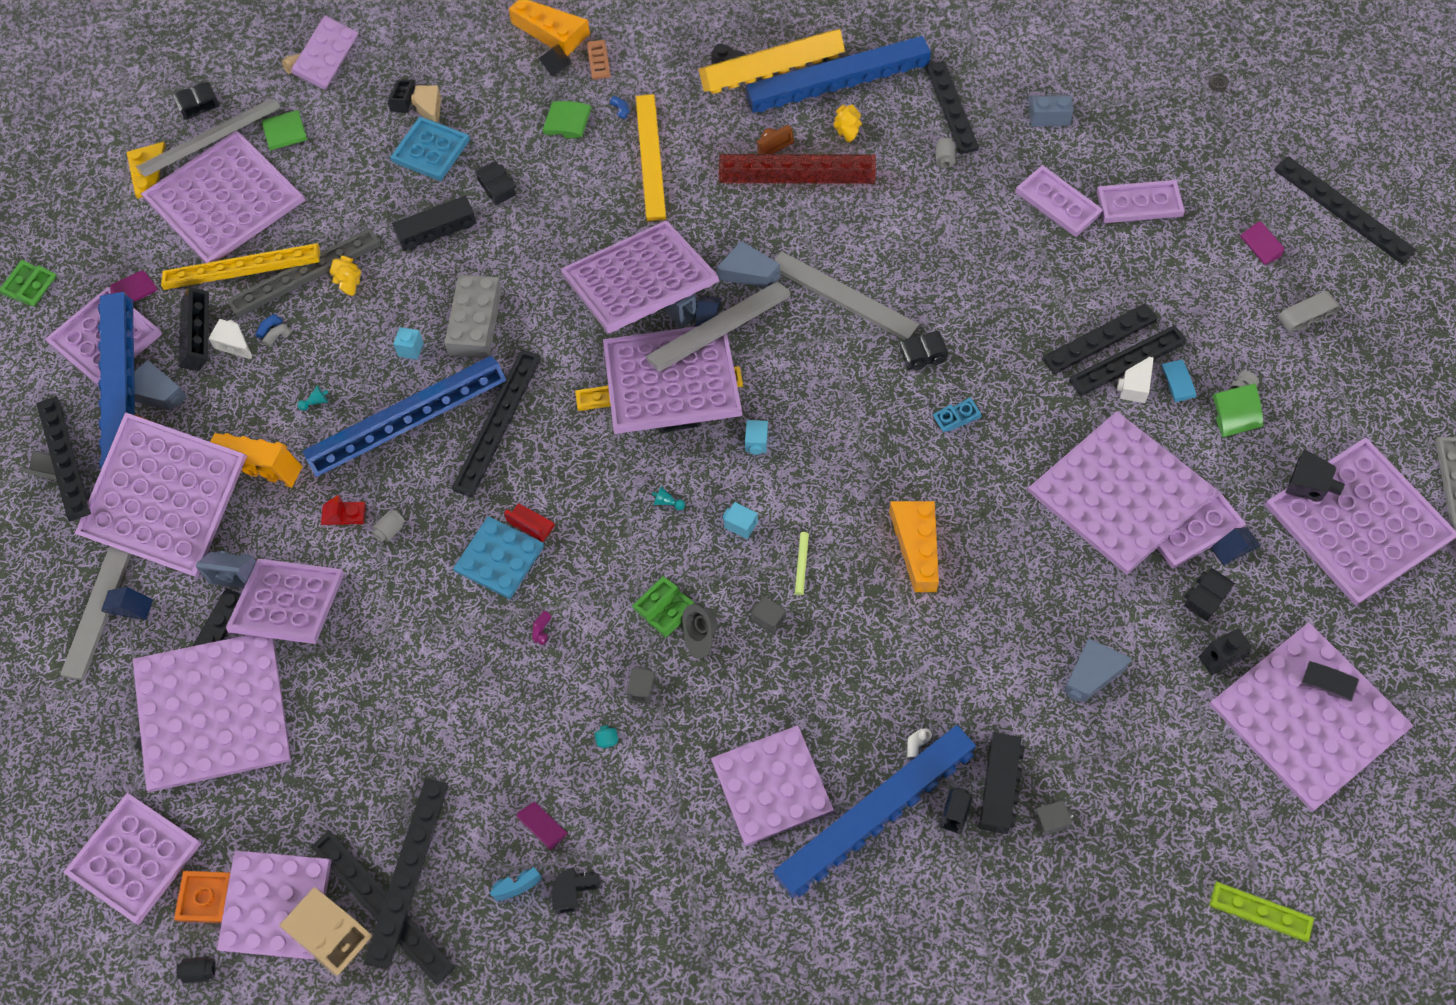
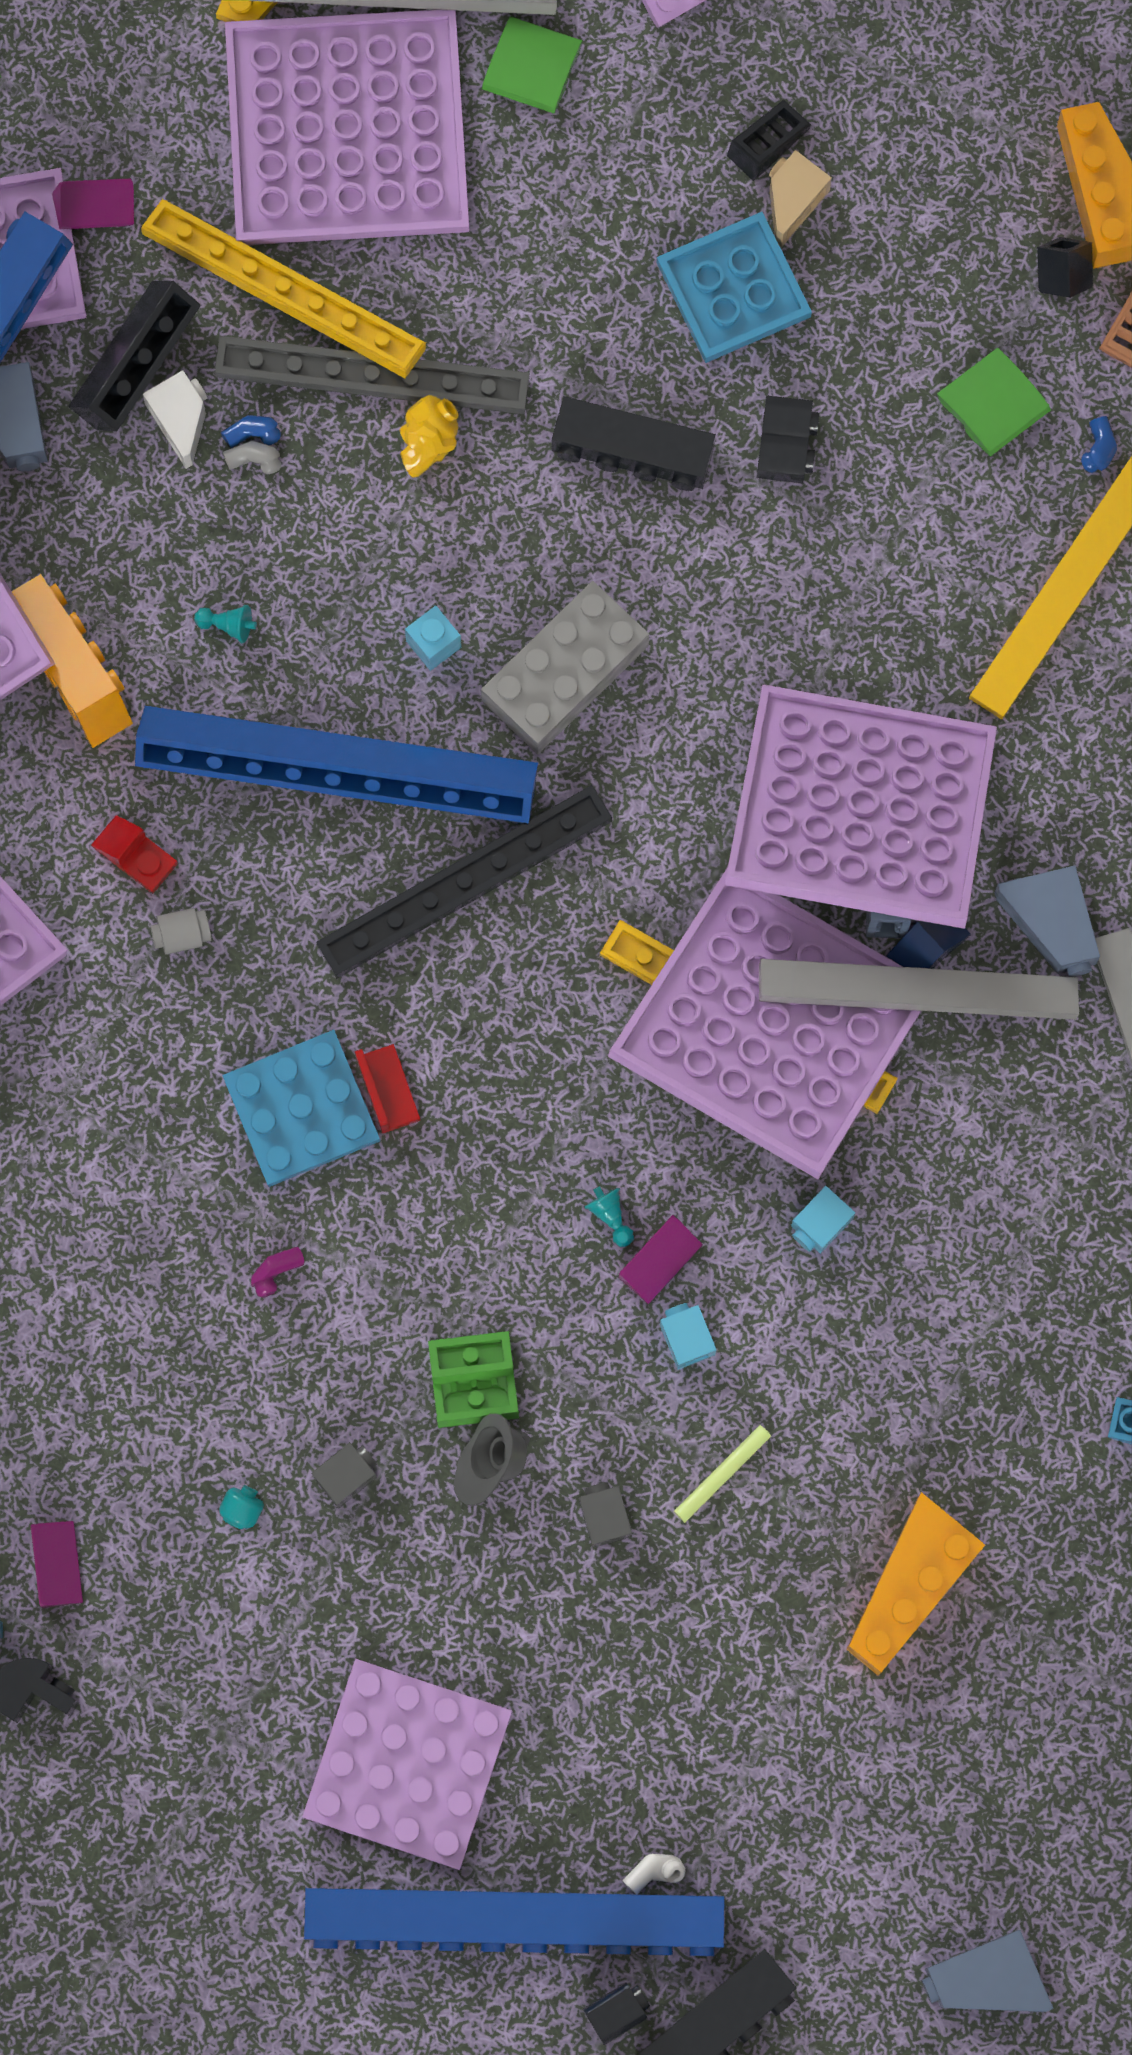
camera: 35 degrees right, 15 degrees up
(702, 502) = (660, 1259): none -> magenta slope

